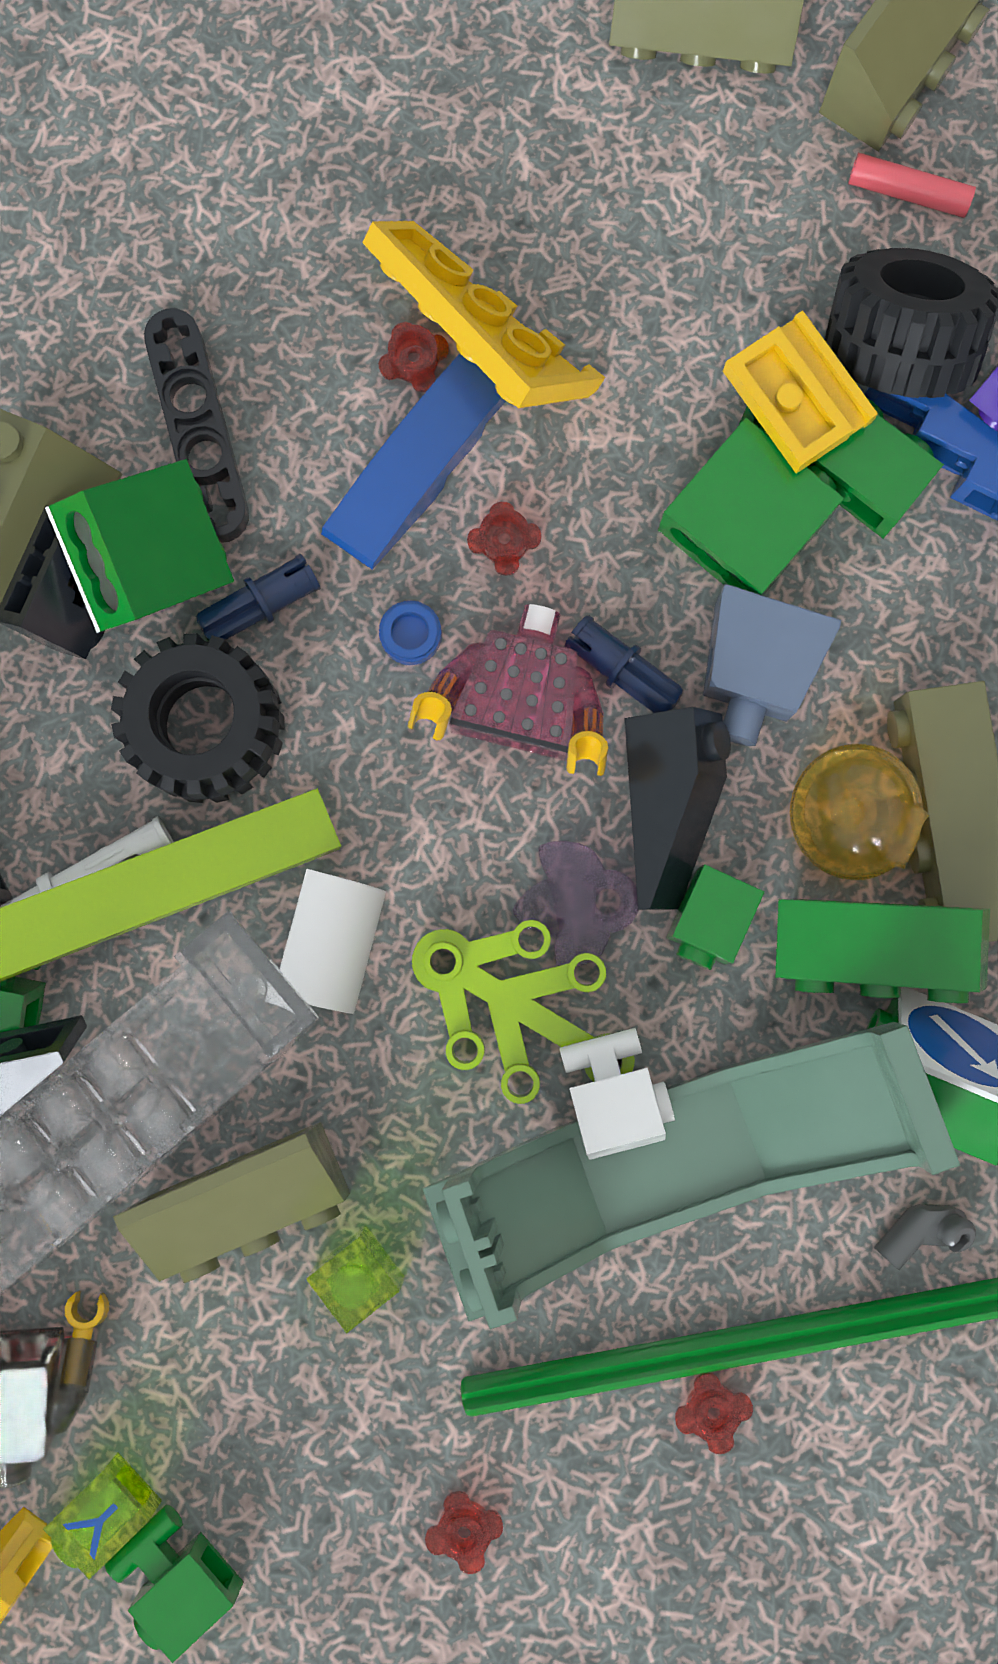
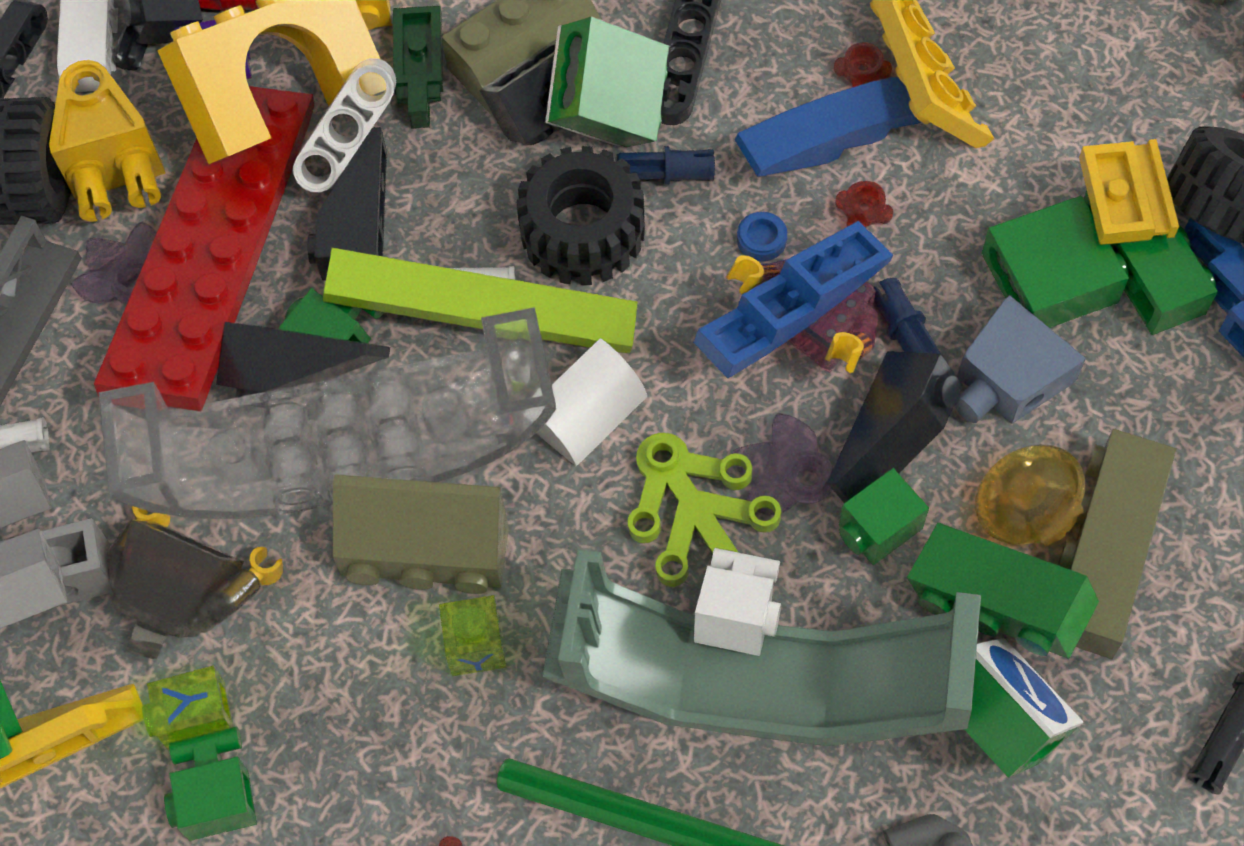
camera: 30 degrees right, 20 degrees down
(497, 717) = (794, 299): none -> blue slope

